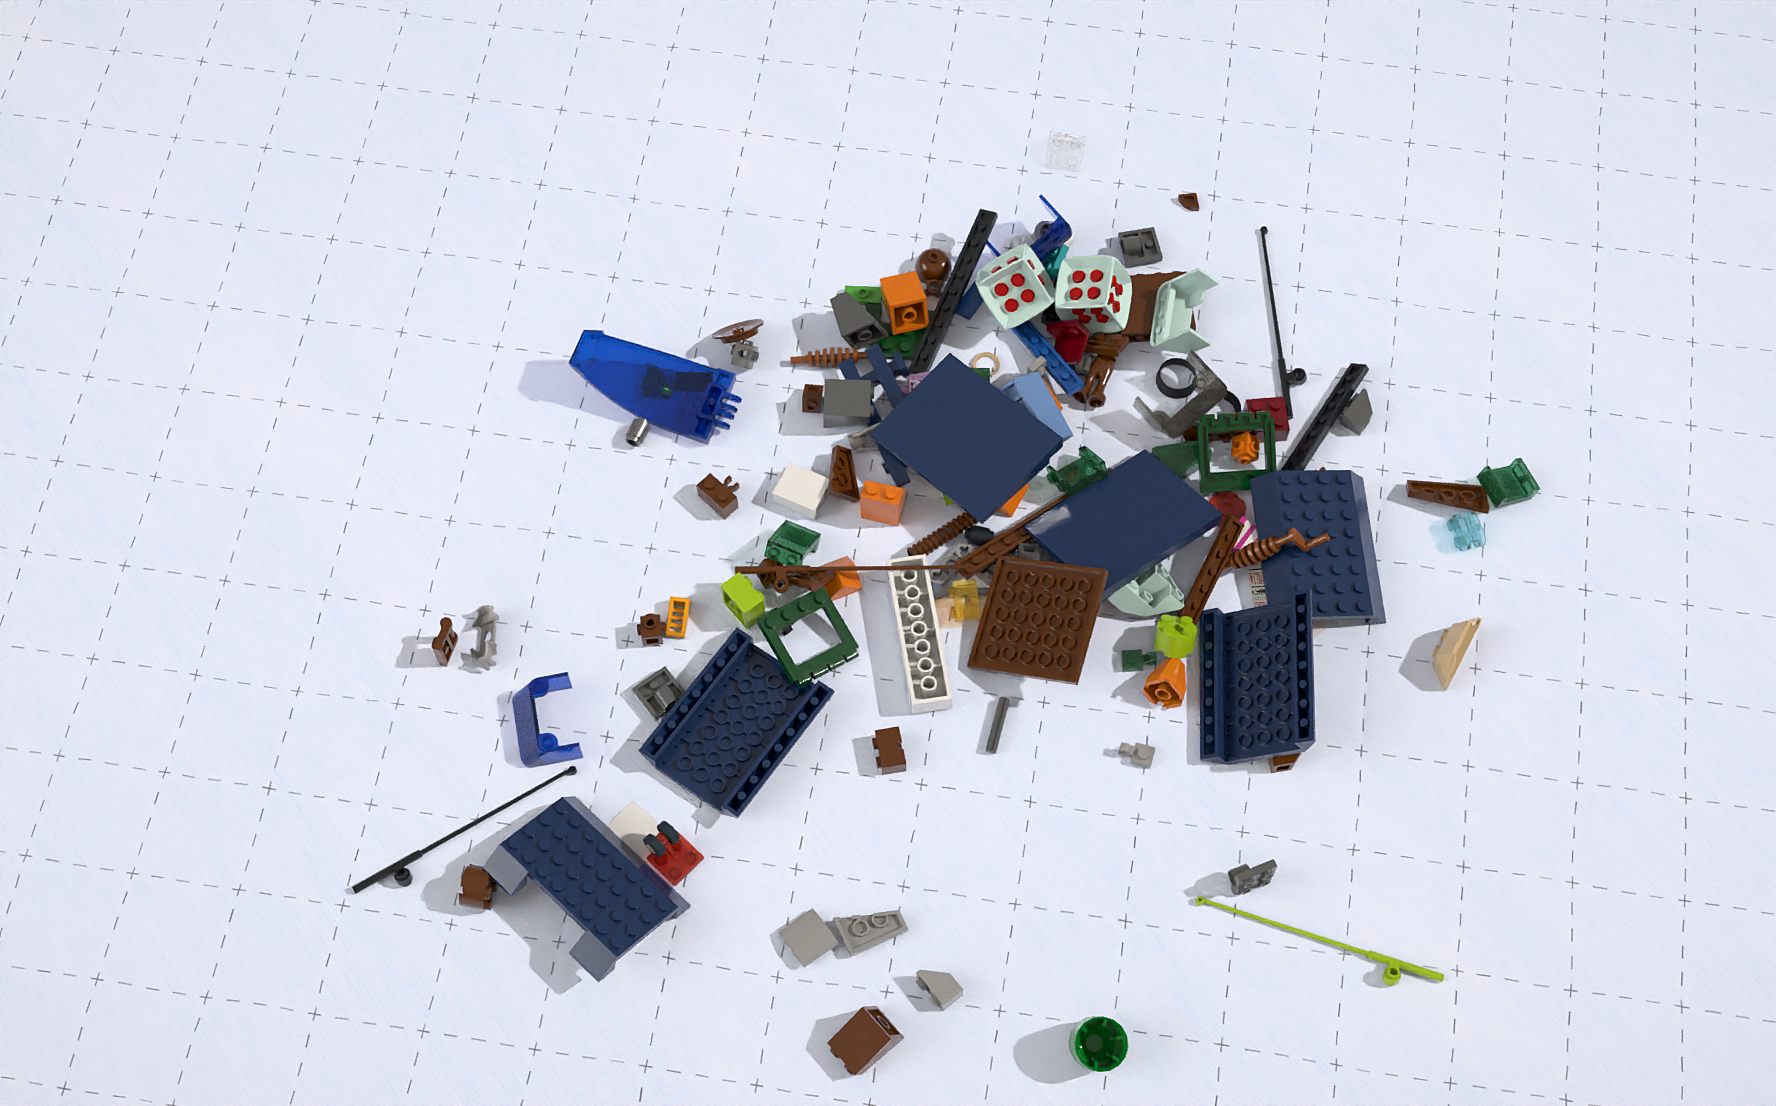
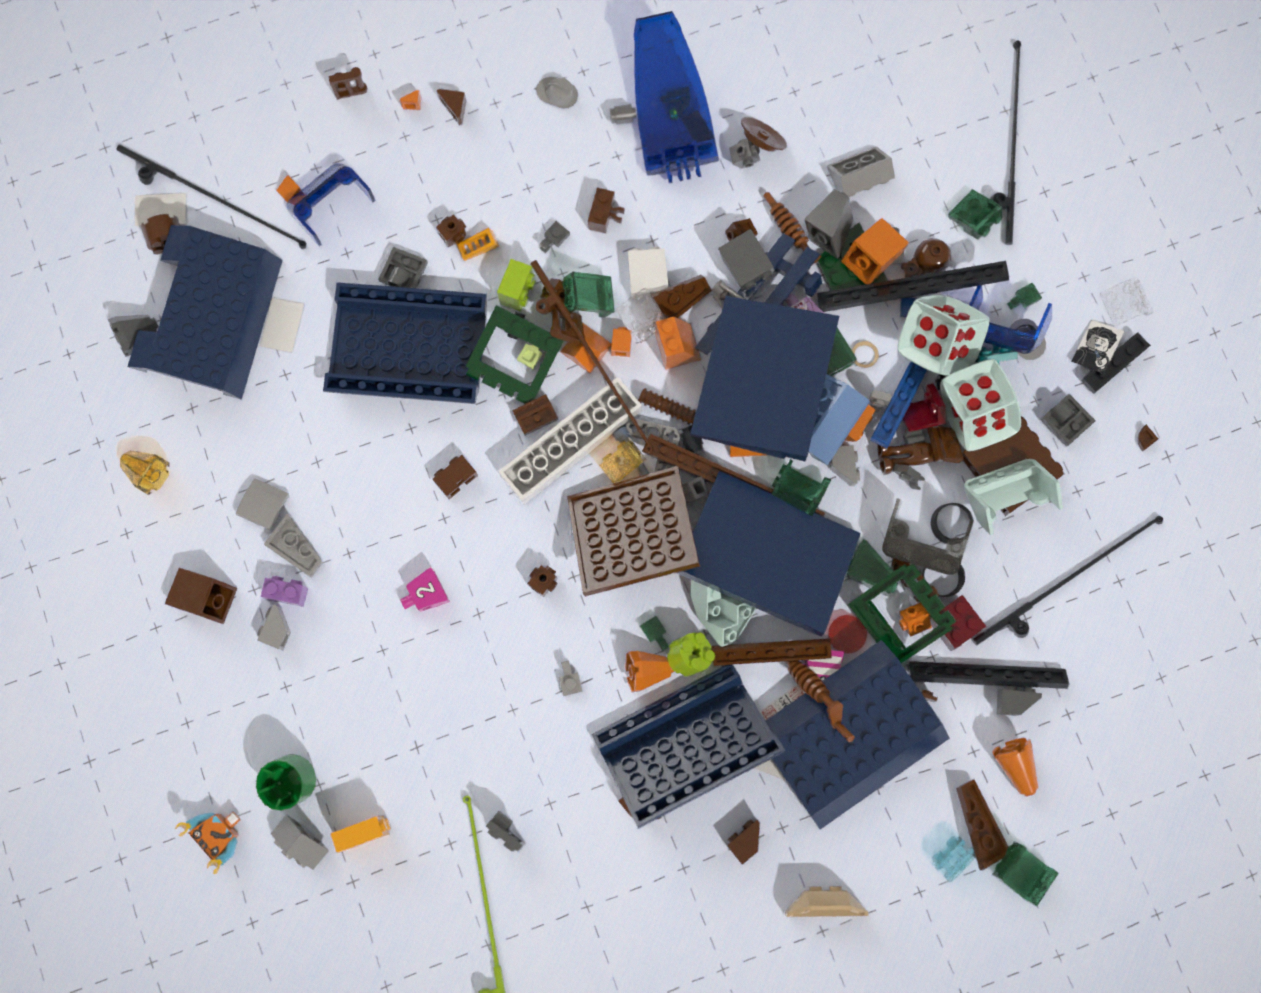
camera: 60 degrees right, 15 degrees up
(442, 885) = (157, 204): none -> white sticker
(486, 620) = (356, 119): light grey piece -> none
(500, 599) = (411, 101): none -> orange slope
(509, 753) = (288, 188): none -> orange slope
(527, 565) = (454, 102): none -> reddish brown slope
(557, 970) = (126, 329): none -> dark grey cone
(575, 475) = (557, 92): none -> light grey piece
(671, 853) = (272, 359): clear red plate -> none
(705, 1029) = (144, 470): none -> clear yellow cone
(713, 549) = (554, 236): none -> dark grey plate
(814, 627) = (530, 356): none -> yellowish green plate
(820, 276) = (862, 171): none -> light grey slope
(840, 511) = (640, 315): none -> clear bracket
(852, 545) = (621, 342): none -> orange brick
(865, 294) = (865, 212): bright green plate -> none
(873, 652) = (535, 414): none -> reddish brown plate
(908, 959) = (284, 592): none -> medium lavender brick
(916, 191) = (1001, 198): none -> black piece
(918, 214) = (976, 214): none -> clear green plate
(984, 832) = (425, 592): none -> dark pink torso
(997, 725) = (529, 550): dark grey axle -> none
(1013, 218) = (1026, 296): none -> clear green plate
(1034, 725) = (543, 587): none -> reddish brown brick
(1081, 429) = (844, 465): none -> light grey slope
(1090, 191) = (1097, 346): none -> sticker
(1112, 187) = (1121, 358): none -> black plate
(1115, 385) = (909, 475): none -> dark grey plate
(1160, 1066) = (298, 843): none -> light grey brick
(1183, 1004) = (360, 833): none -> light orange brick
(1367, 684) = (746, 842): none -> reddish brown slope
(1413, 438) = (1018, 764): none -> orange cone

